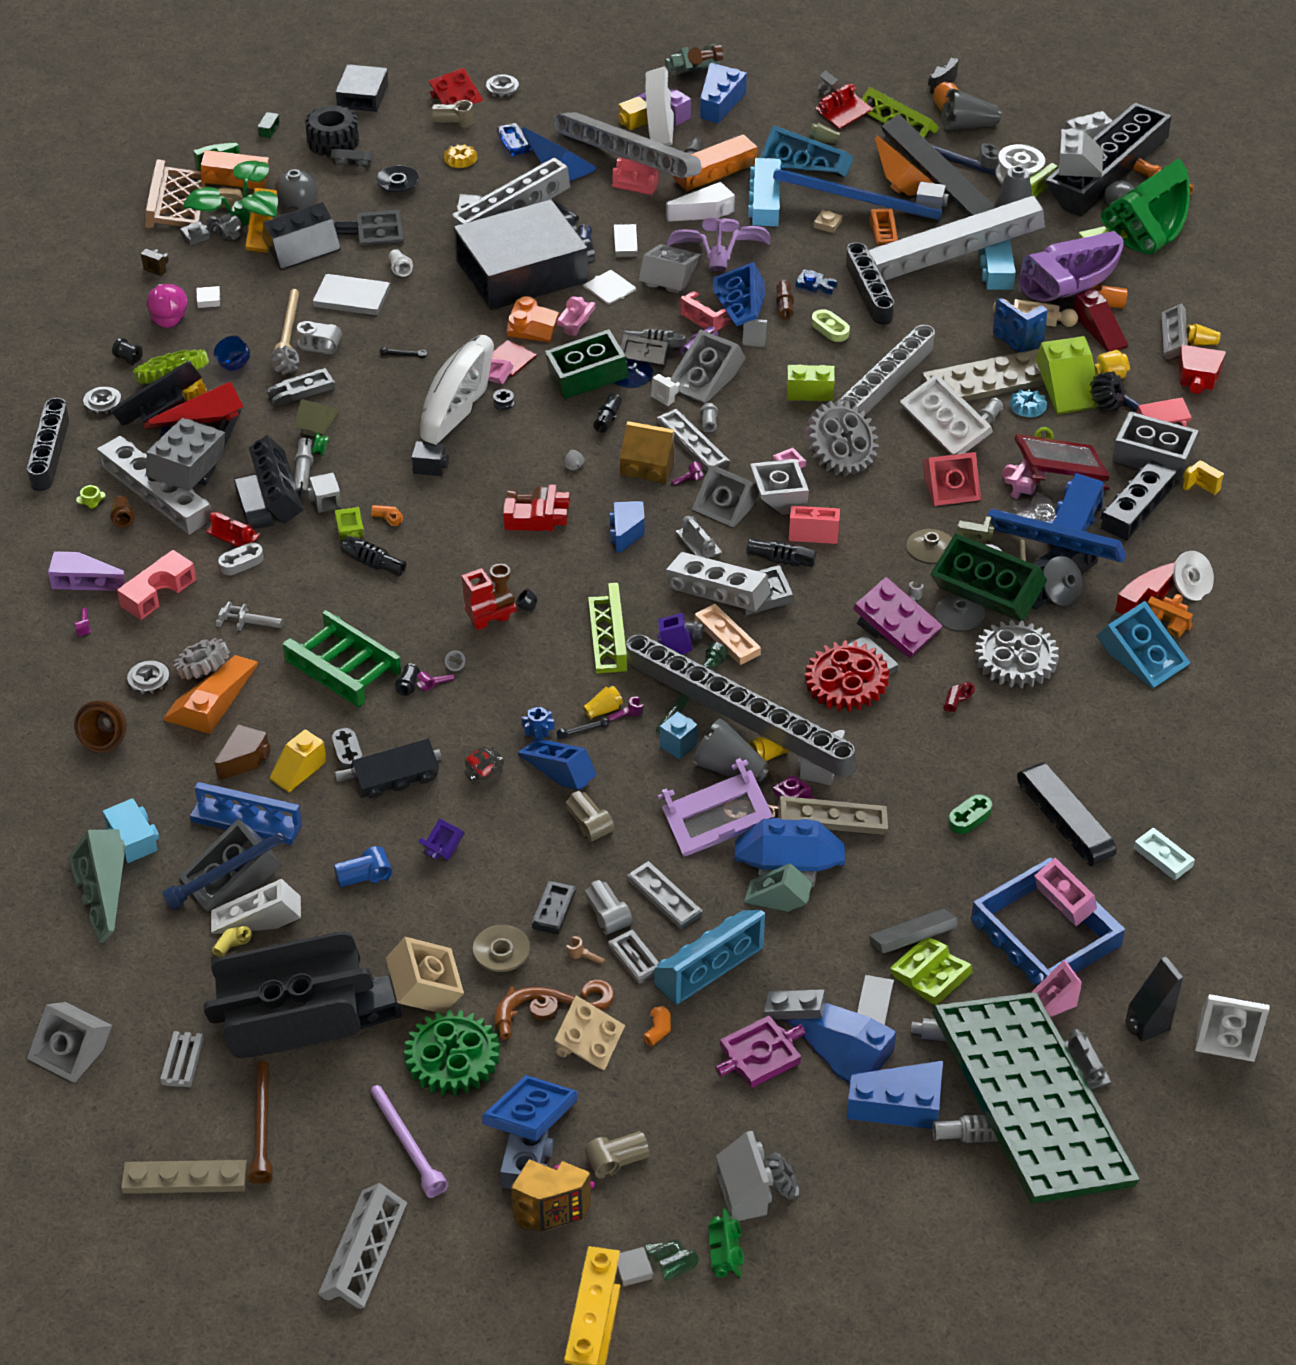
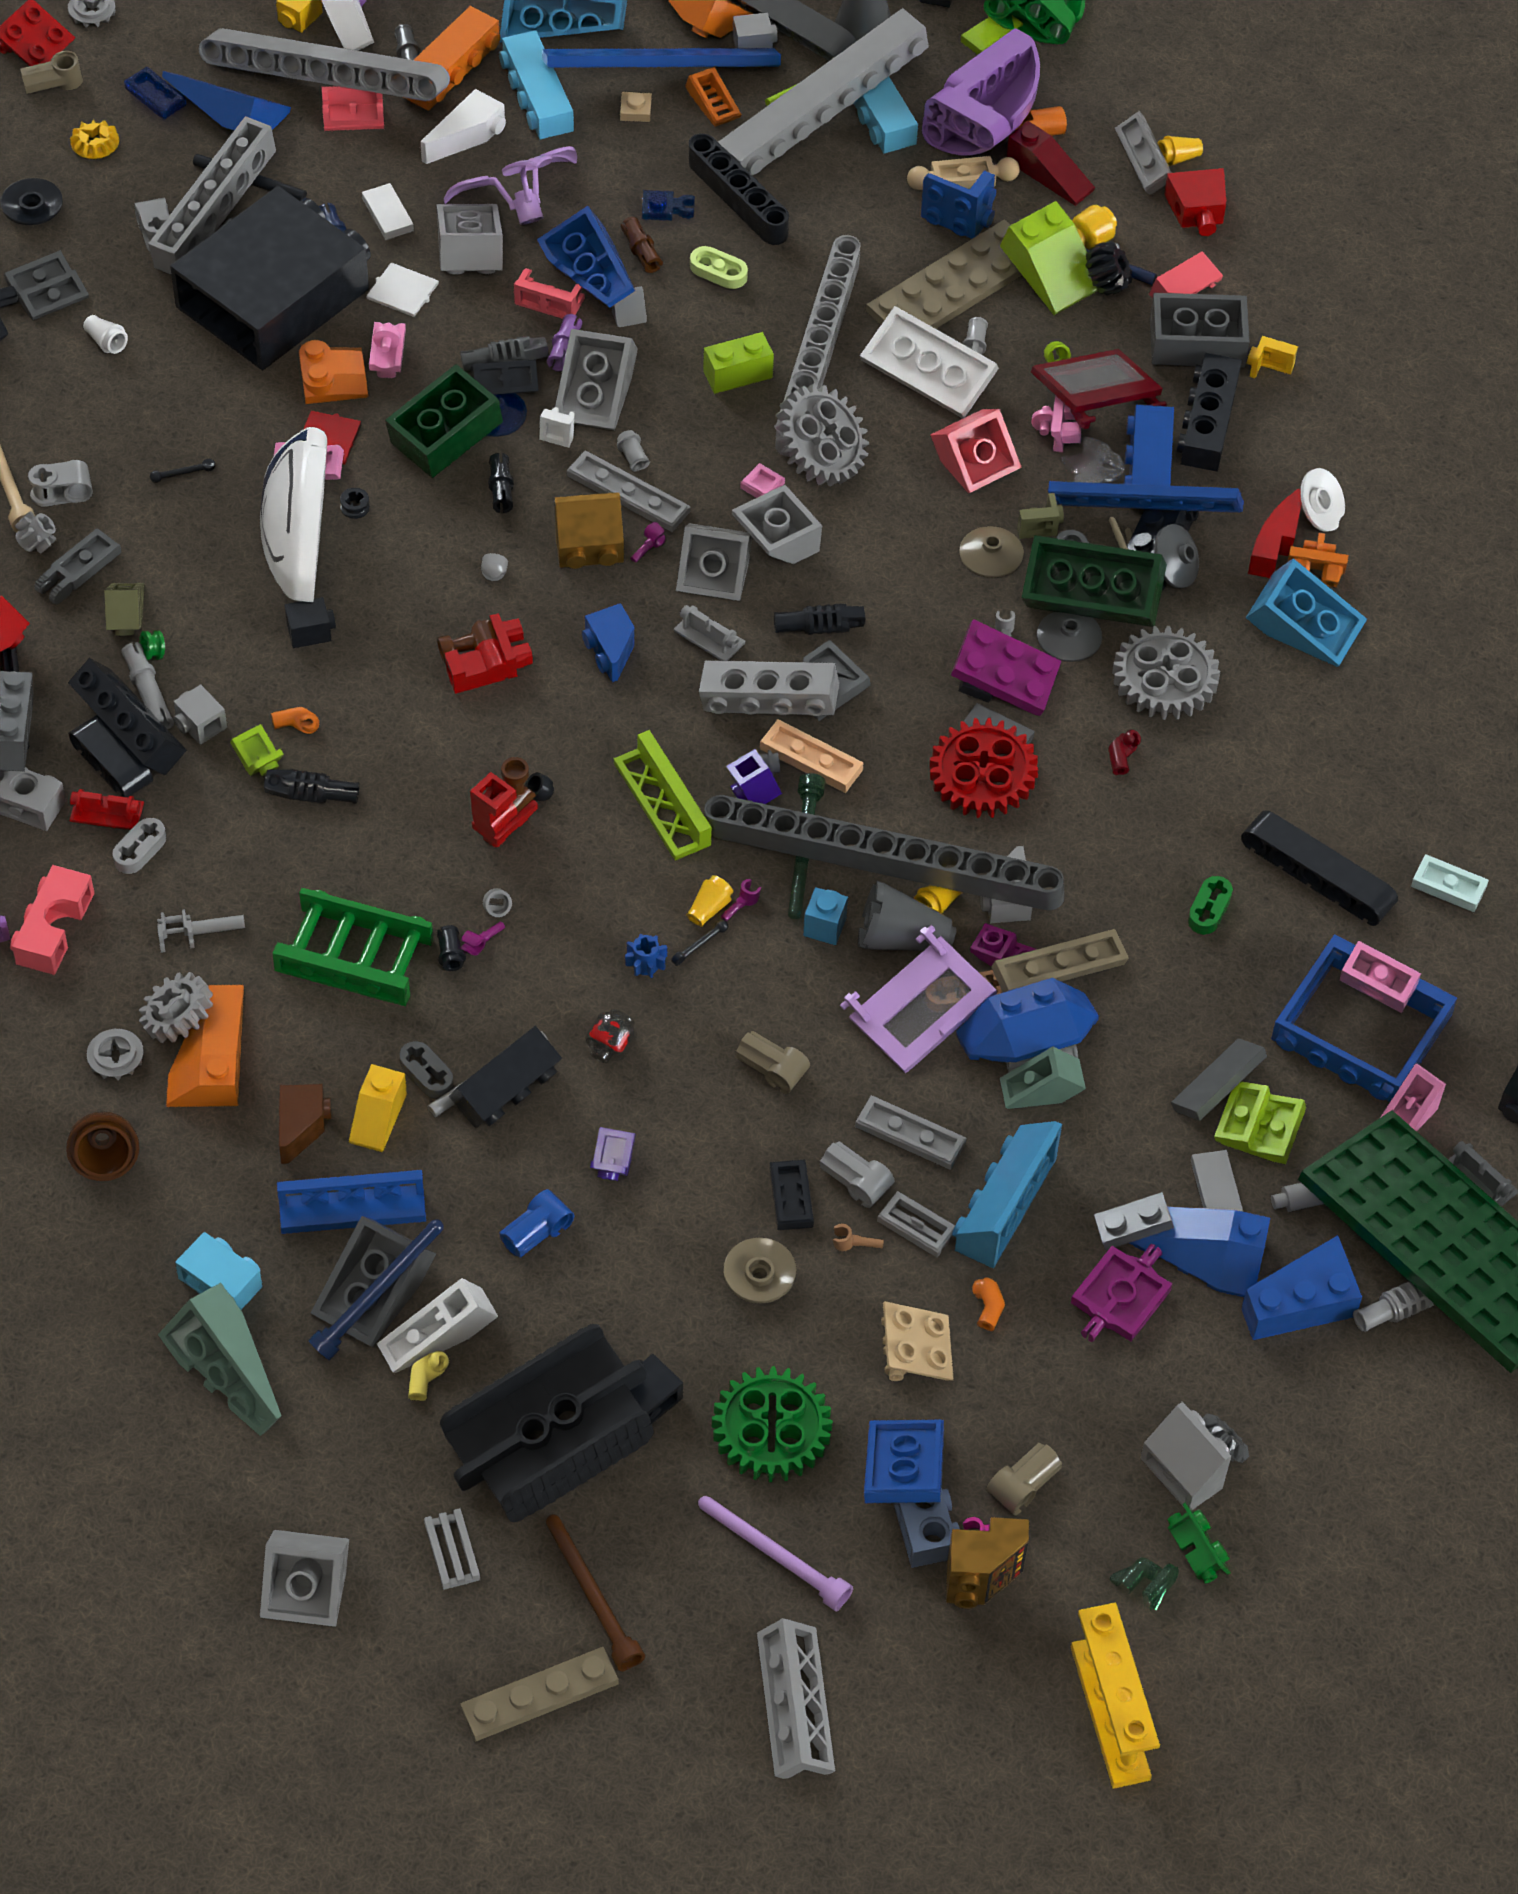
camera: 25 degrees left, 10 degrees up
(351, 294) = (64, 401): tile -> none
(424, 975) = (695, 1340): tan brick -> none
(545, 1011) = (847, 1311): dark orange plant -> none
(560, 762) = (703, 1000): blue slope -> none
(634, 1267) = (1110, 1594): light grey tile -> none
(814, 524) = (842, 567): coral hinge -> none
(1030, 409) = (1024, 316): medium azure gear -> none

